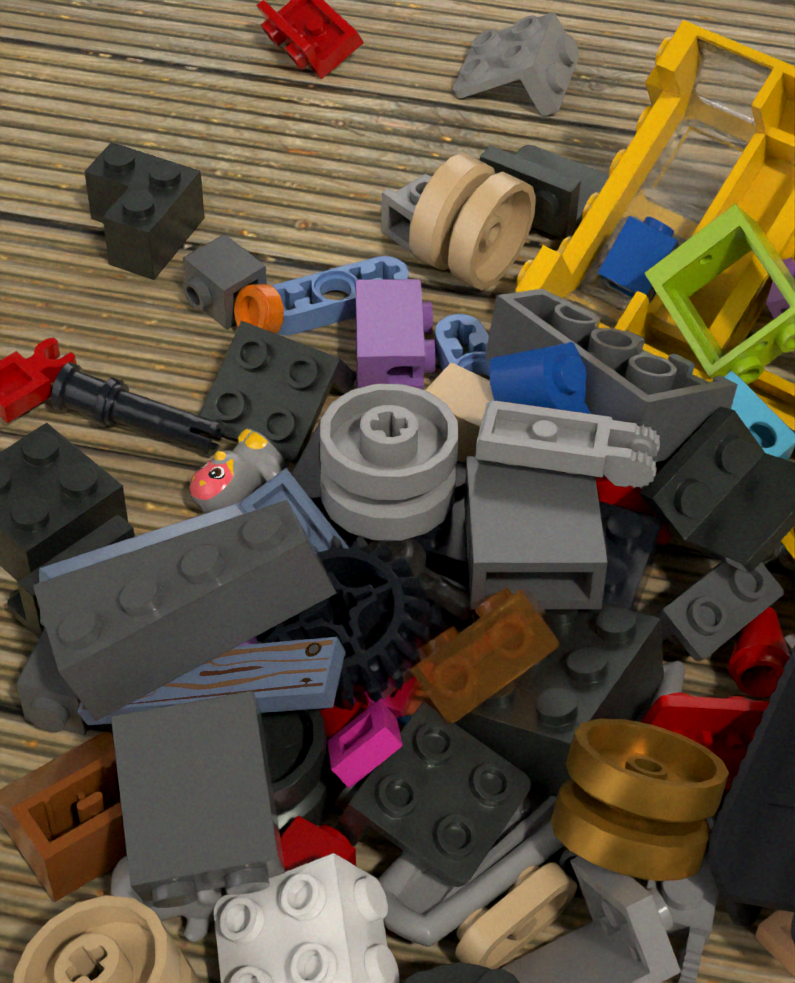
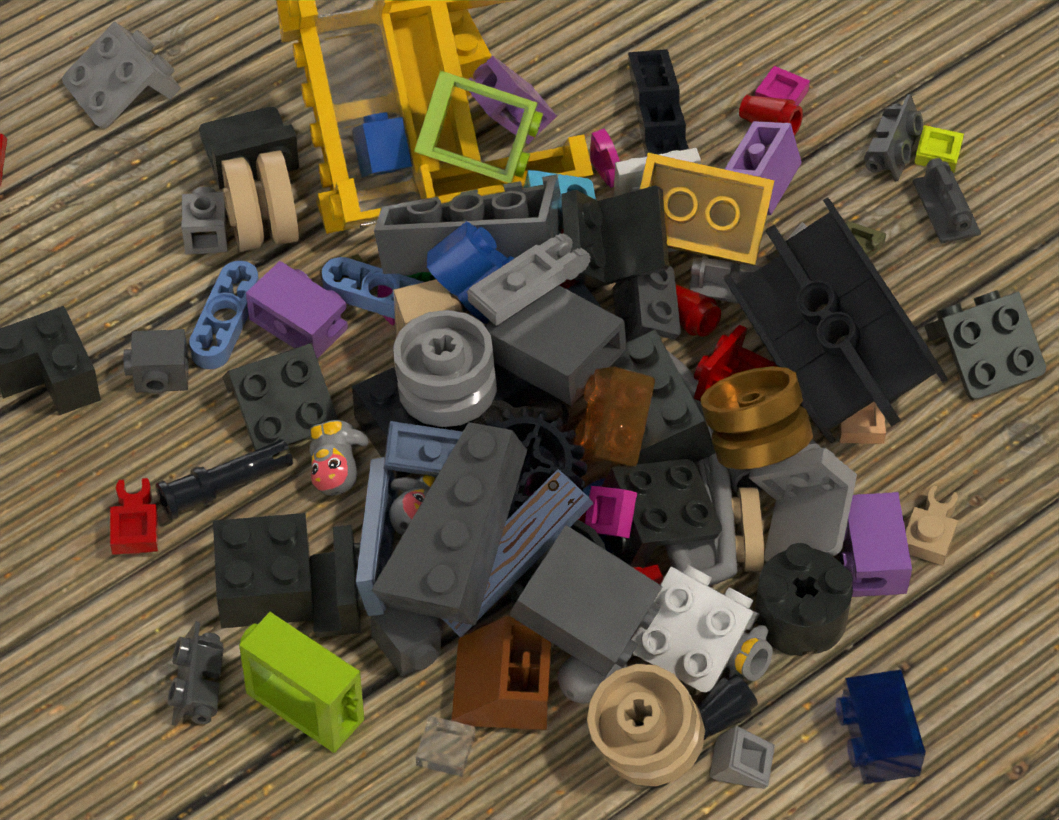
camera: 50 degrees left, 5 degrees up
(260, 307) = (207, 360): orange tile -> none

